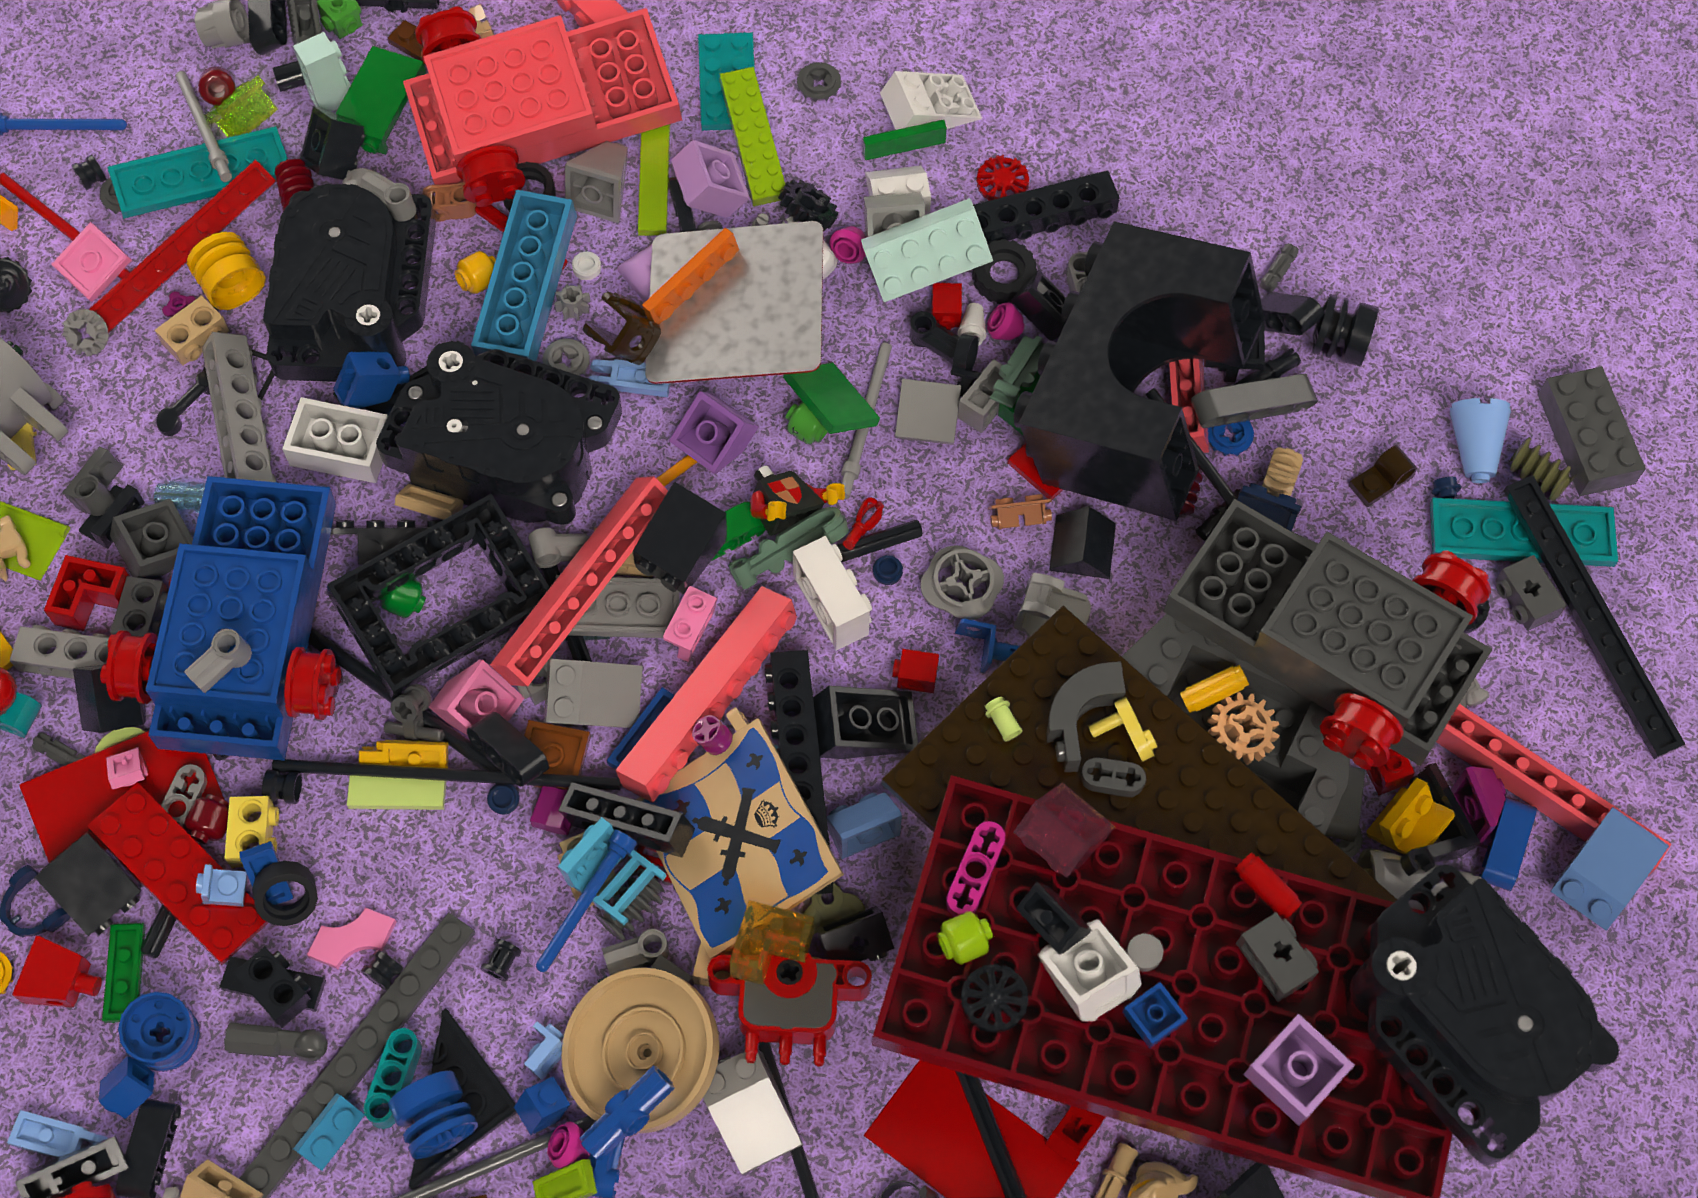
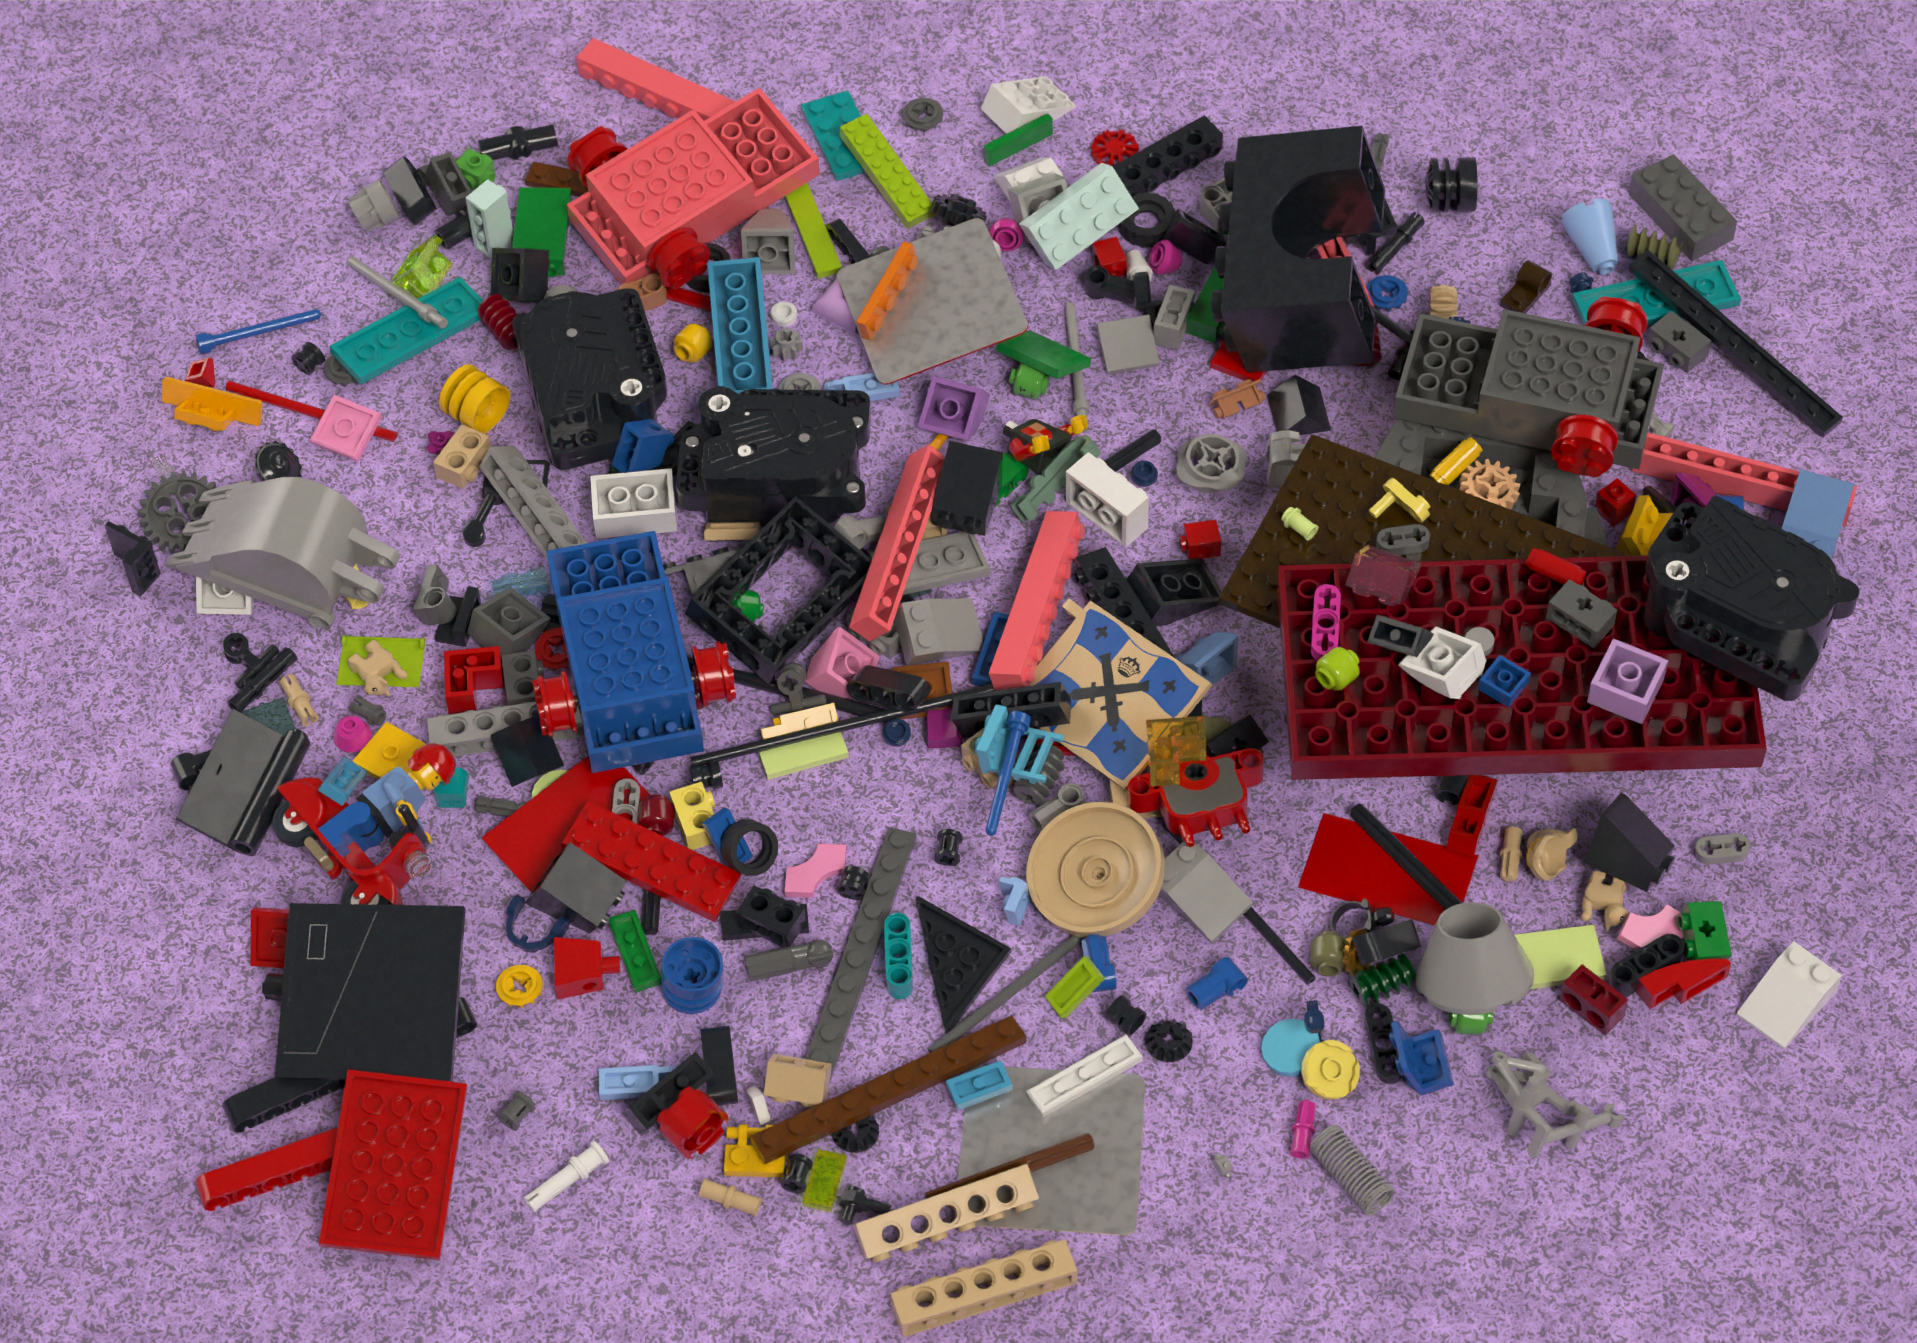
camera: 15 degrees left, 10 degrees down
(95, 328) = (360, 474): light grey gear -> none
(126, 768) = (573, 794): bright pink bracket -> none
(126, 1087) = (681, 1024): blue brick -> none
(174, 251) = (421, 394): red tile -> none
(216, 85) = (391, 257): dark red head -> none
(217, 662) = (637, 667): light grey piece -> none
(222, 886) = (695, 856): light blue bracket -> none
(329, 1132) = (863, 1009): dark azure plate -> none
(394, 195) = (610, 290): light grey piece -> none
(432, 1114) = (948, 961): blue wheel -> none
(541, 1105) = (1030, 936): blue brick -> none
(566, 1145) = (1063, 956): dark pink cone -> none
(627, 1113) = (1107, 910): blue piece -> none
(636, 325) = (851, 361): dark brown piece -> none
(690, 621) = (998, 554): bright pink bracket -> none
(710, 179) = (866, 213): lavender brick -> none
(712, 735) = (1058, 624): magenta wheel -> none
(858, 528) = (1109, 447): red piece -> none
(992, 648) = (1255, 506): blue bracket -> none
(994, 998) = (1376, 705): black wheel -> none
(1018, 371) = (1196, 286): sand green piece -> none
(1085, 690) = (1356, 485): dark grey arch -> none
(1253, 400) = (1400, 256): dark grey beam -> none
(1290, 313) = (1405, 182): black beam -> none

